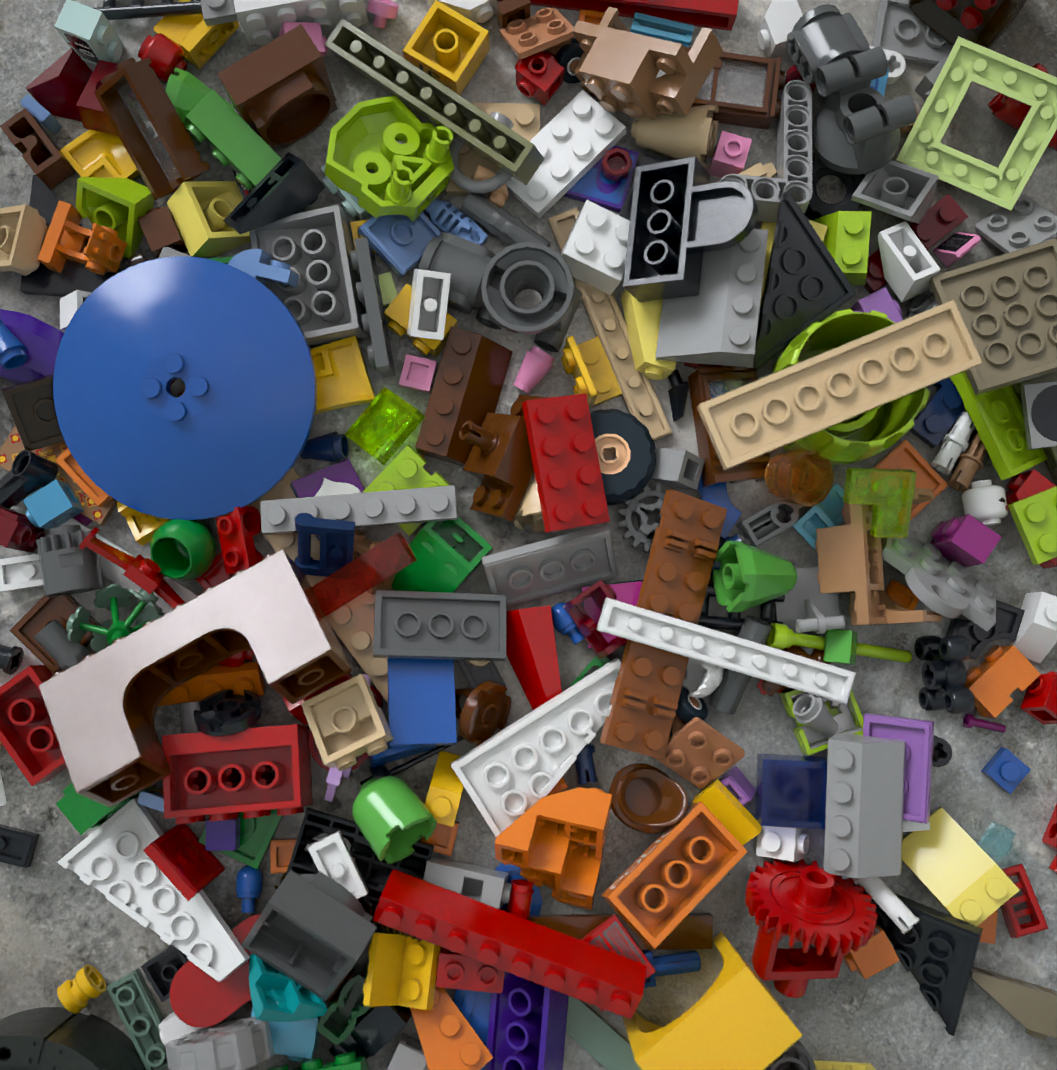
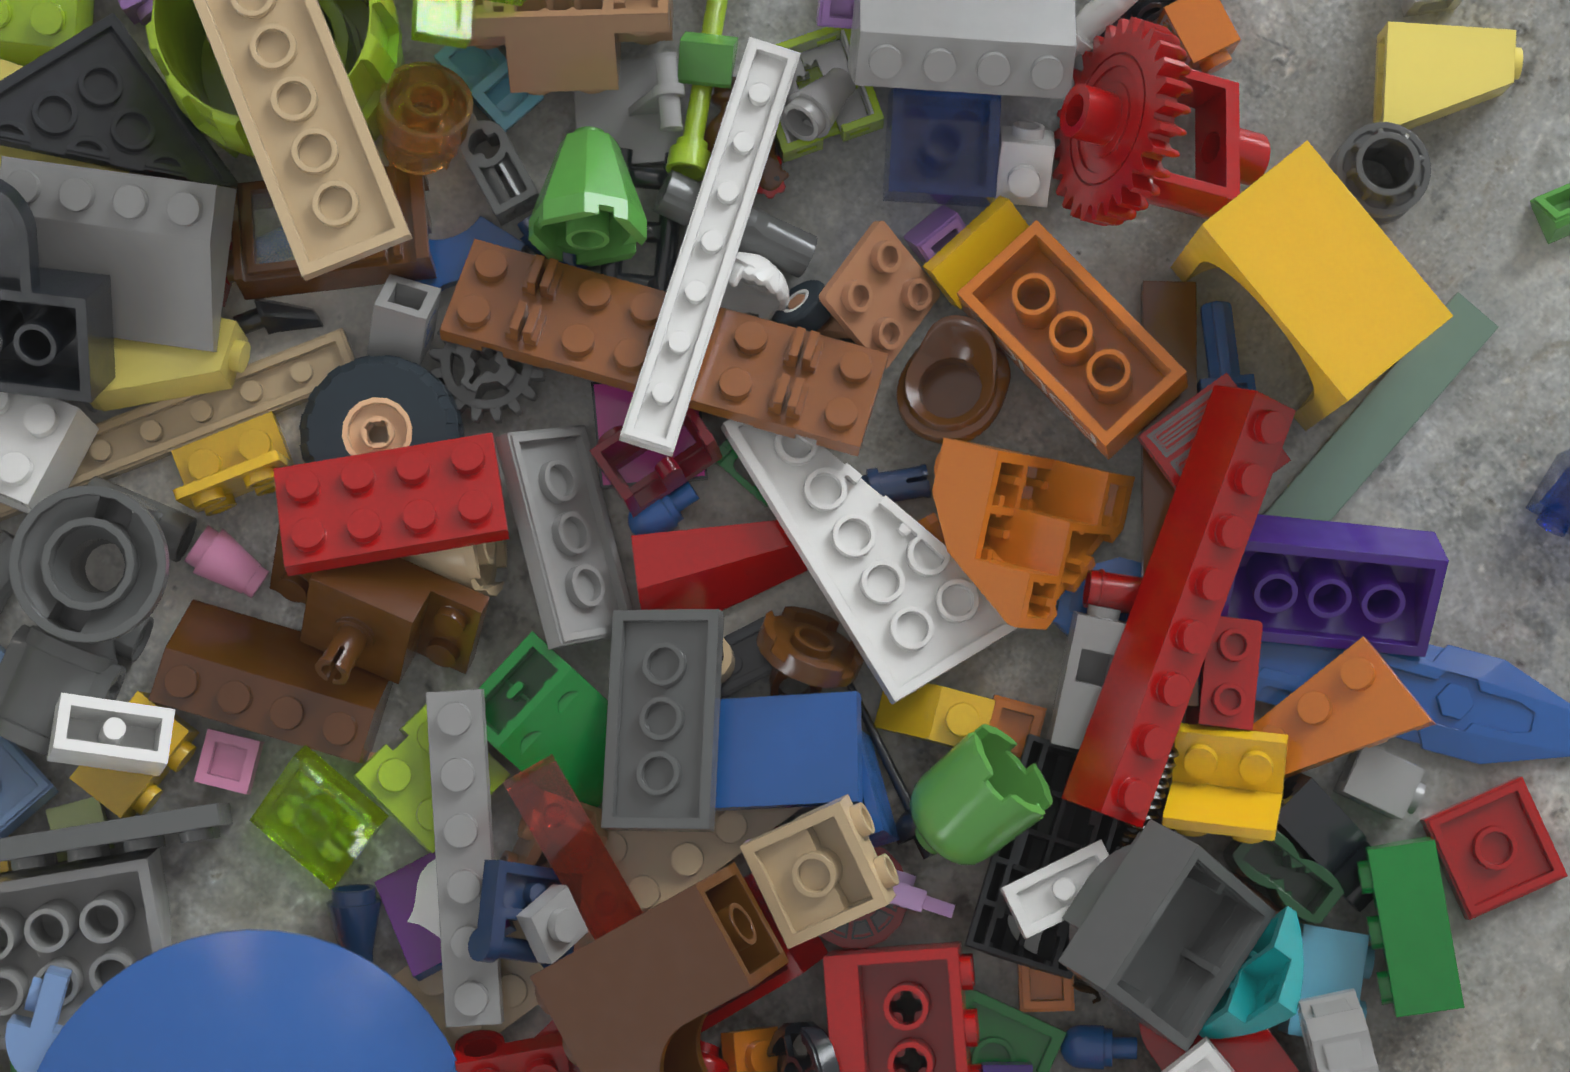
camera: 85 degrees left, 0 degrees up
(318, 562) = (552, 924): none -> light grey plate
(341, 375) = (227, 891): yellow plate -> none

